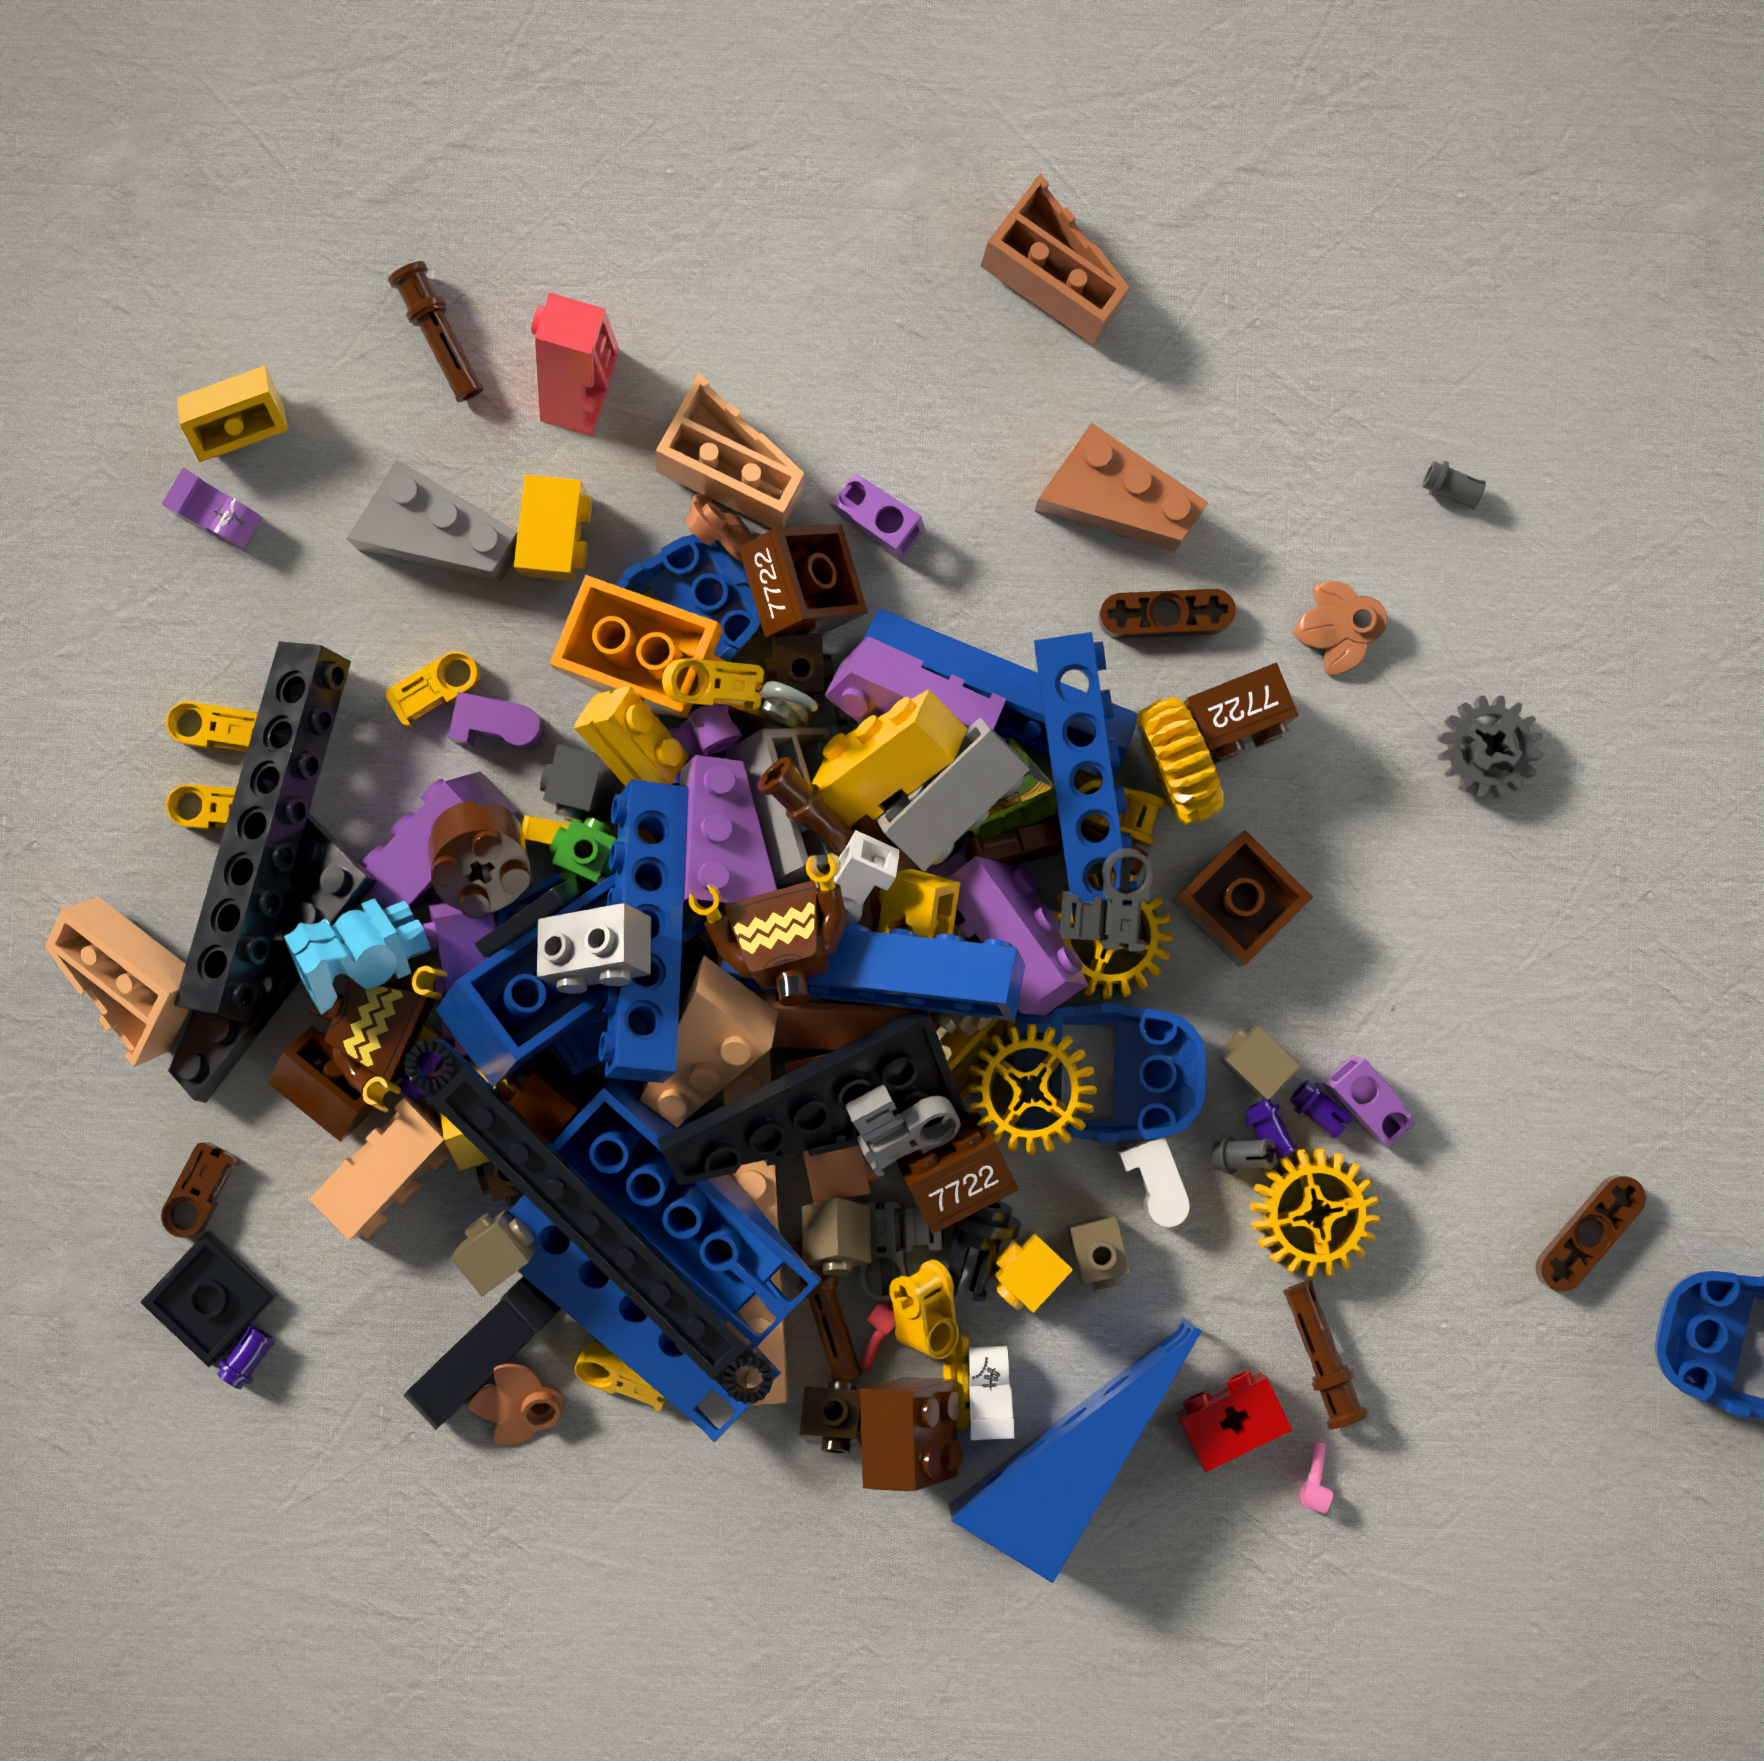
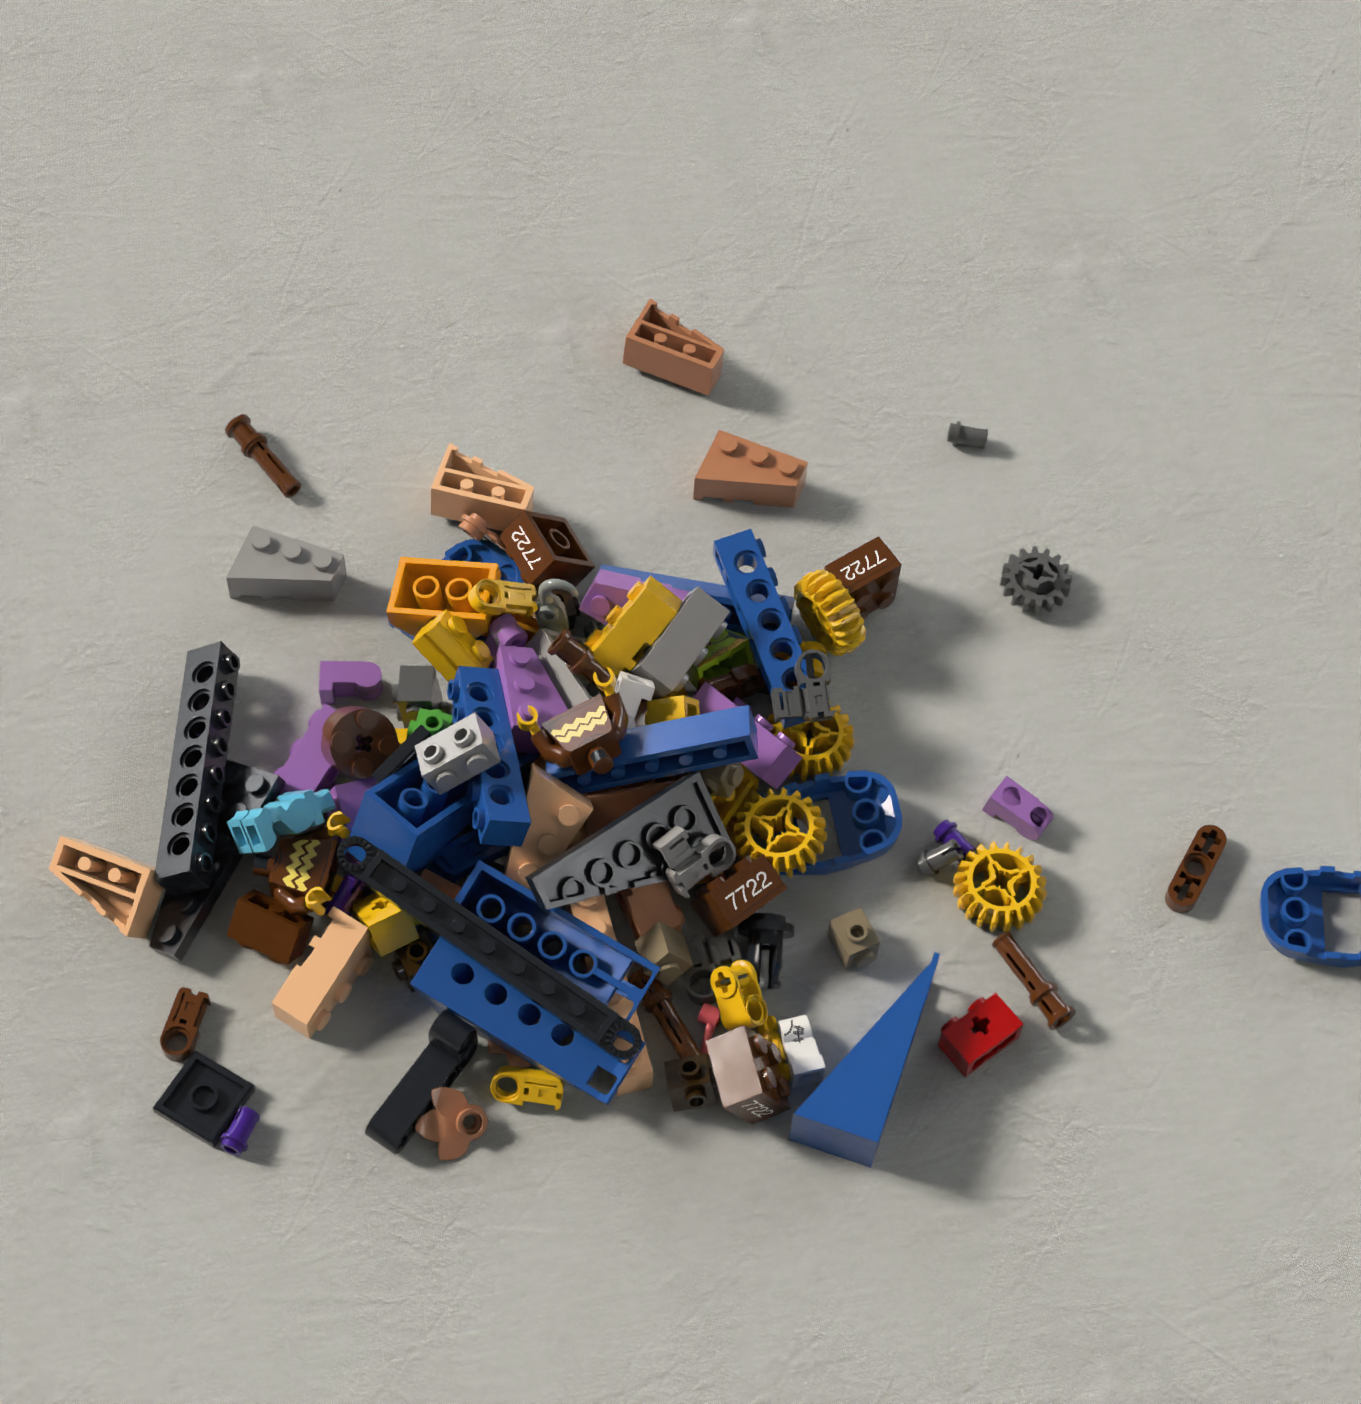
camera: 15 degrees left, 25 degrees down
(211, 510) = (124, 585): medium lavender leg -> none
(215, 806) = (157, 771): yellow piece -> none
(220, 725) = (153, 719): yellow piece -> none
(232, 414) = (131, 522): yellow brick -> none
(429, 688) = (296, 670): yellow piece -> none
(494, 1250) = (422, 979): dark tan brick -> none
(552, 528) = (365, 554): yellow brick -> none
(573, 362) = (364, 447): coral wedge -> none
(879, 516) = (590, 513): medium lavender leg -> none
(1029, 1272) = (808, 952): yellow brick -> none
(1165, 1194) = (883, 884): white leg -> none
(1201, 626) = (805, 530): reddish brown beam -> none
(1242, 898) = (894, 695): reddish brown brick -> none
(1258, 1061) = (933, 794): dark tan brick -> none
(1312, 1493) = (1053, 1078): bright pink hand -> none
(1320, 1108) = (985, 822): dark purple pin -> none
(1334, 629) = (913, 531): nougat plate -> none

